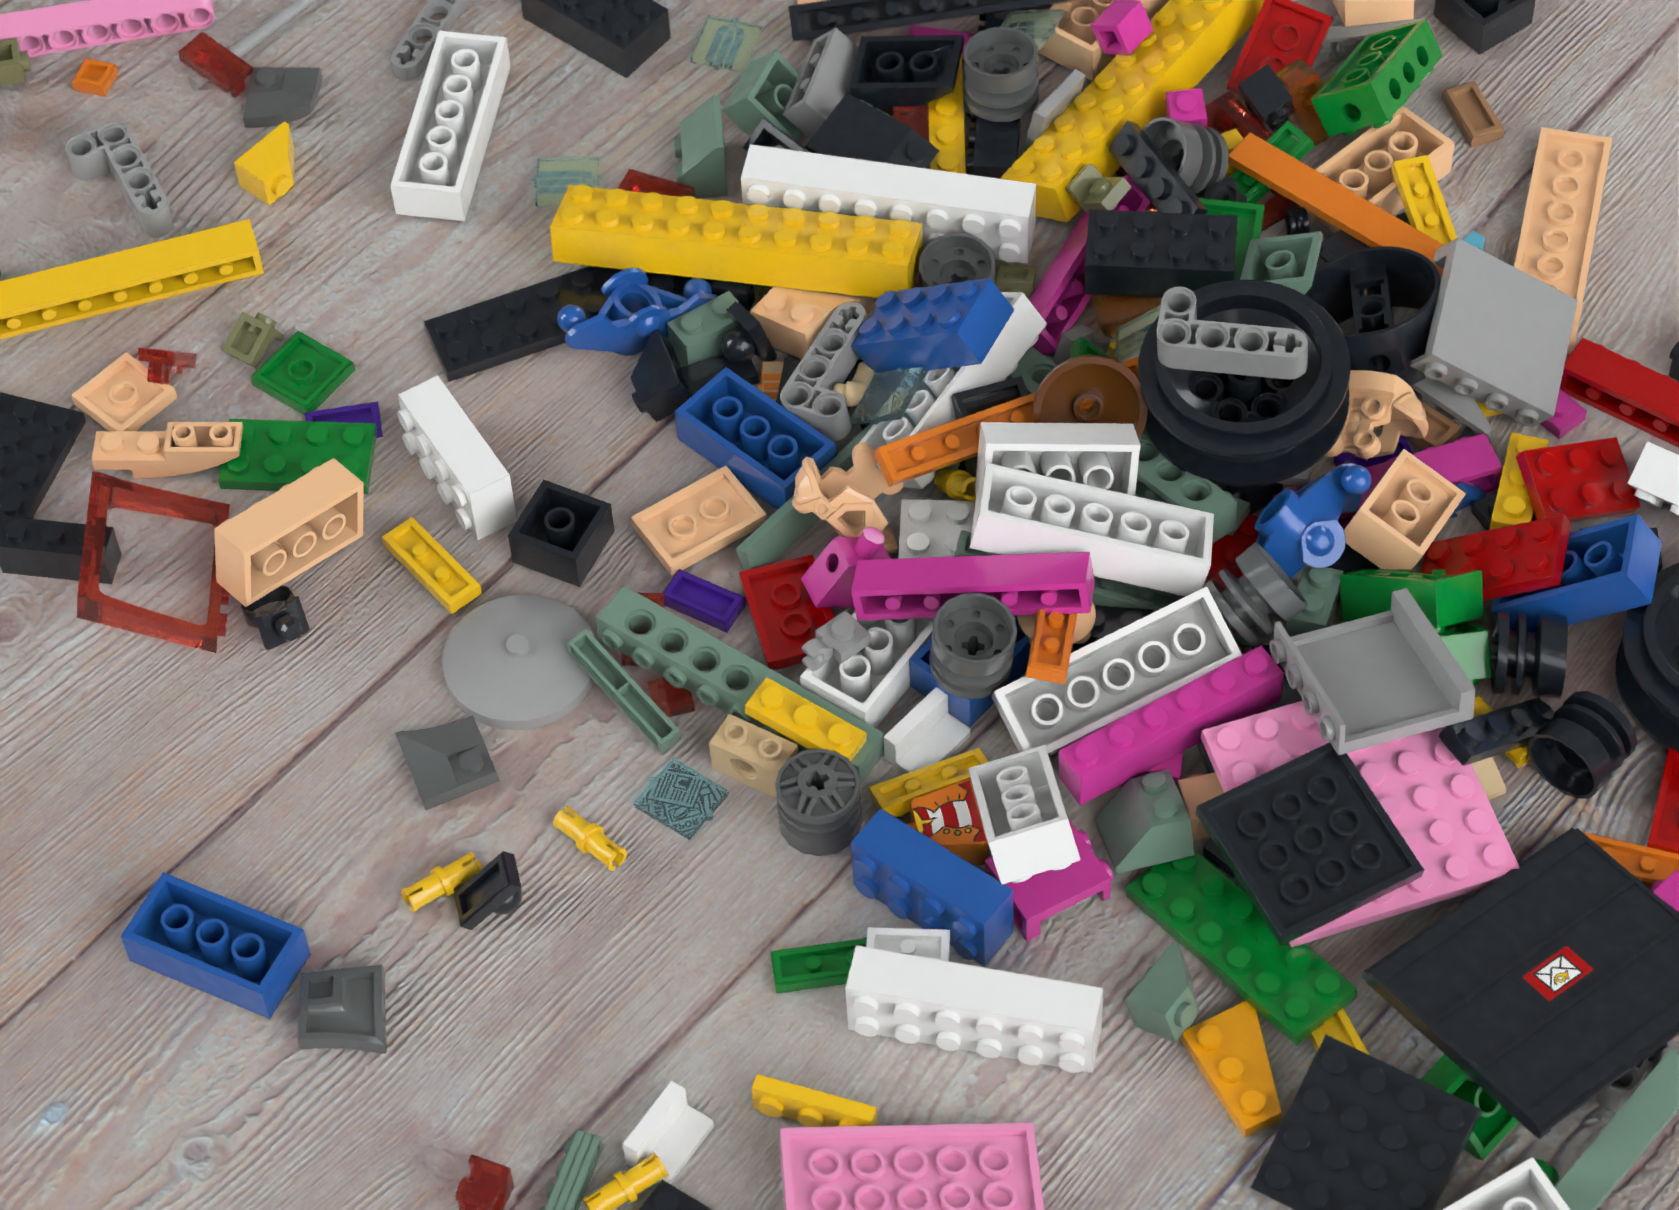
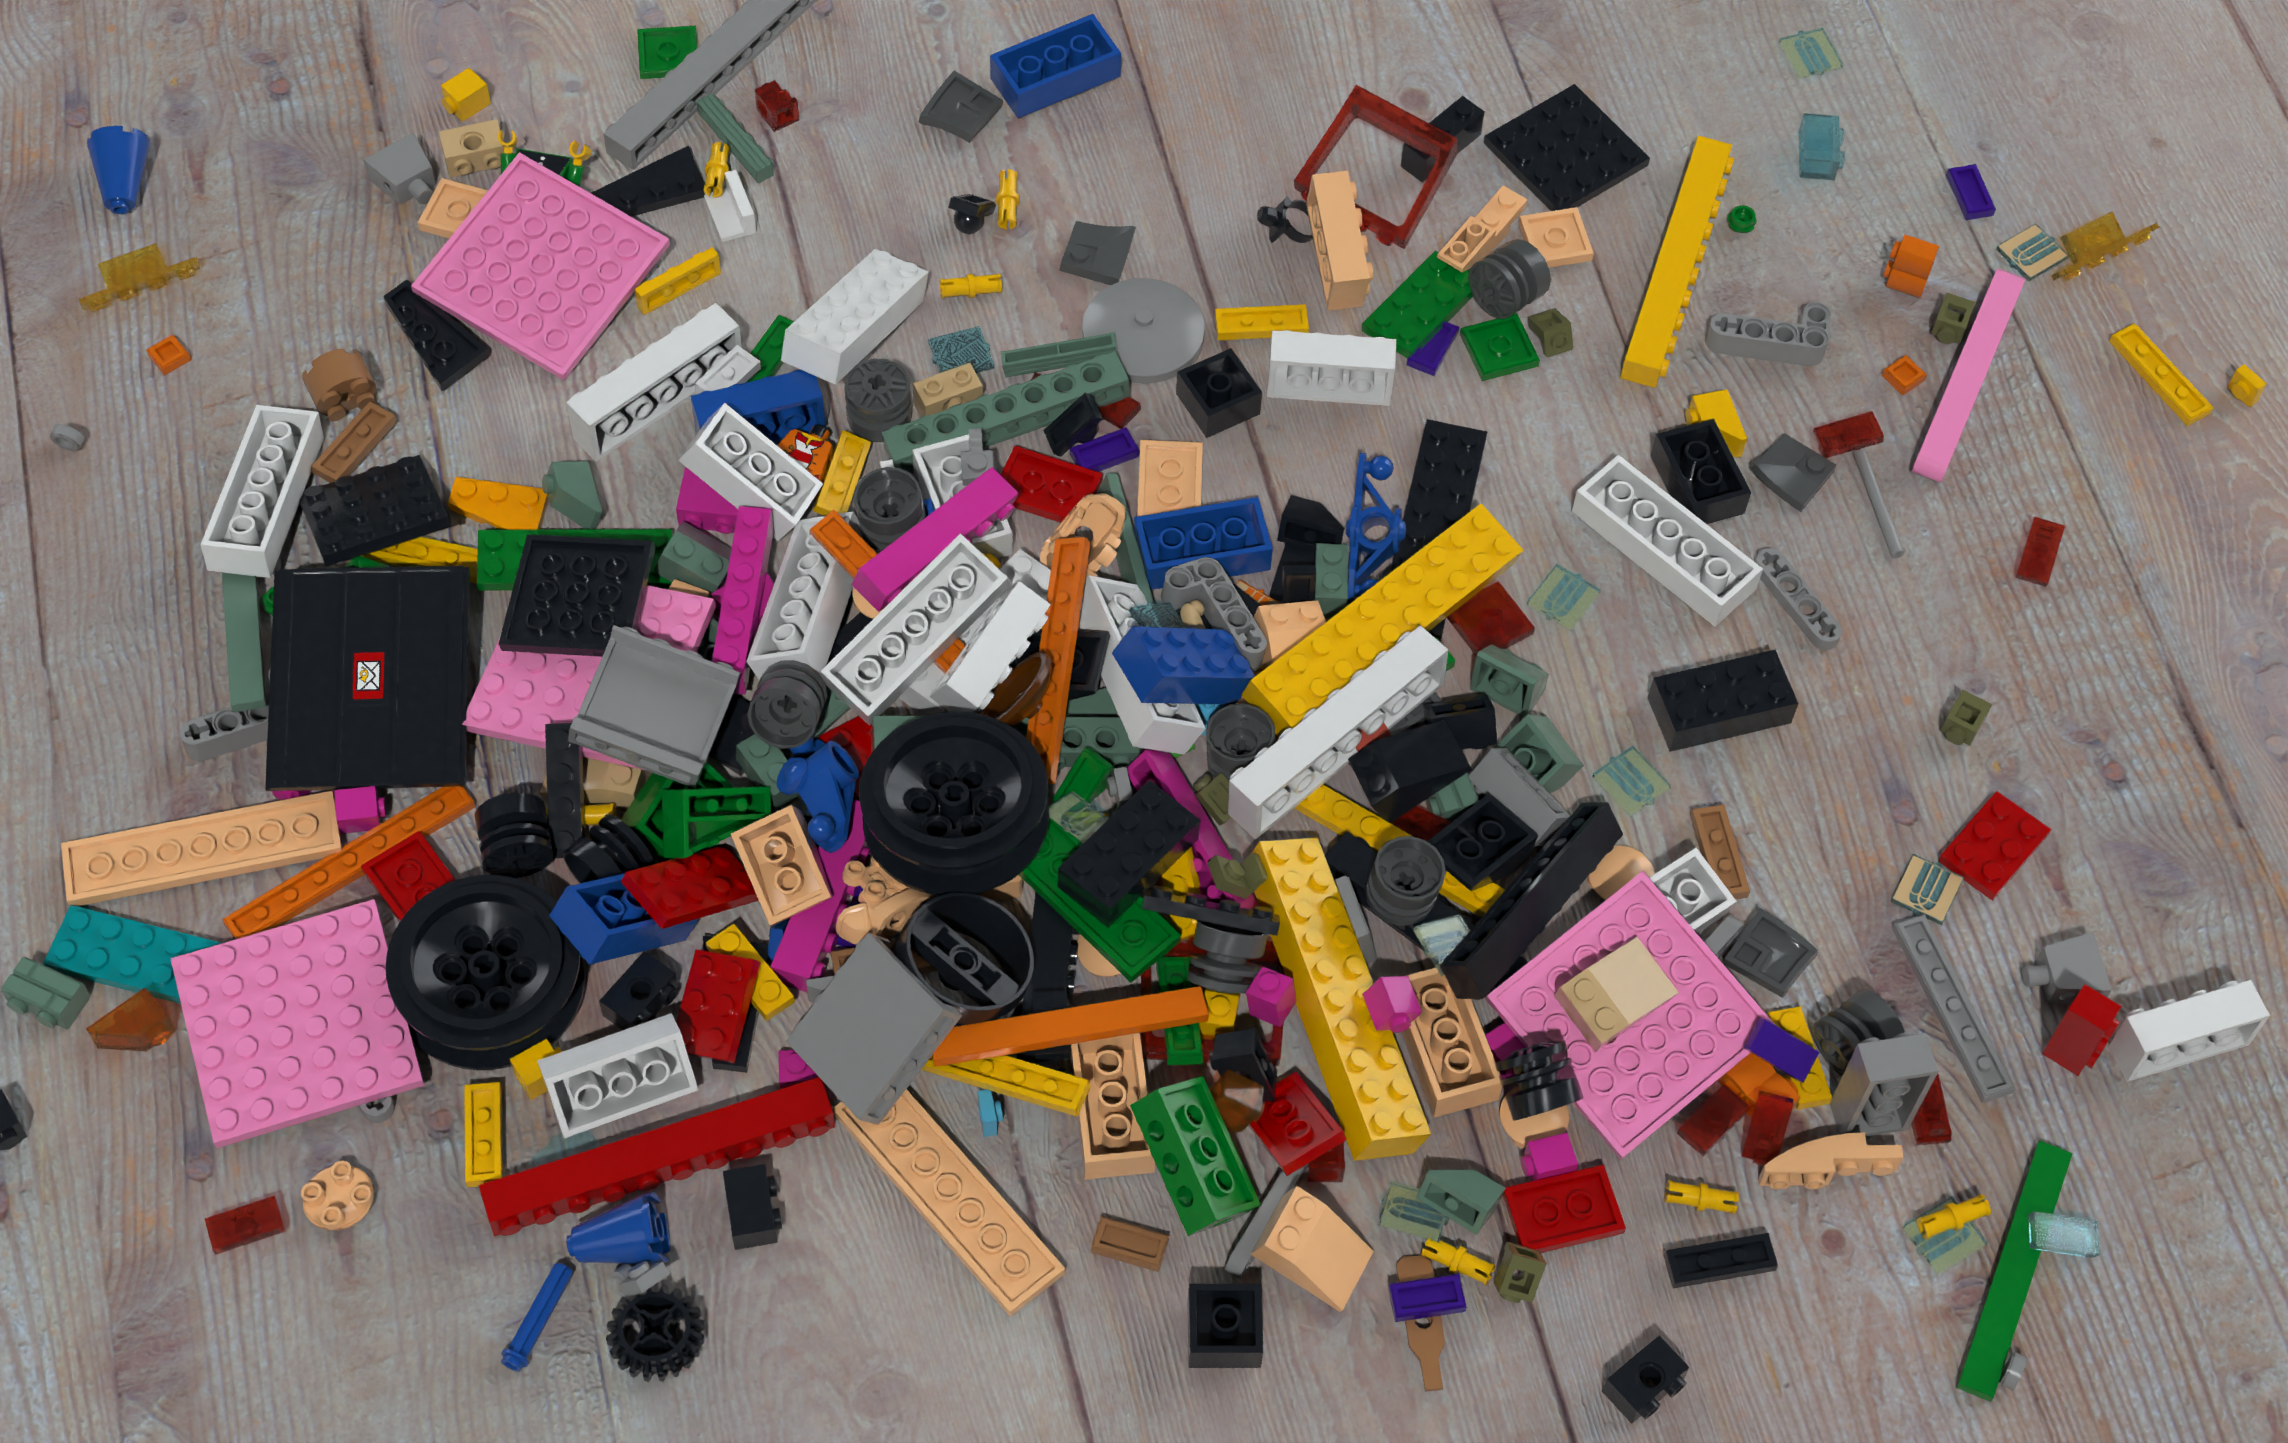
camera: 120 degrees right, 5 degrees up
(165, 362) = (1562, 263): clear red plate -> none
(225, 379) = (1509, 278): none -> dark grey wheel
(350, 138) = (1701, 471): none -> black brick
(698, 609) = (1074, 425): none -> black tile
(744, 864) = (854, 316): none -> white brick
(803, 720) = (935, 416): yellow plate -> none
(832, 573) = (1034, 519): dark pink torso -> none
(1225, 188) = (1170, 971): black plate -> none
(1277, 352) = (966, 759): light grey beam -> none
(1284, 260) = (1047, 915): sand green slope -> none

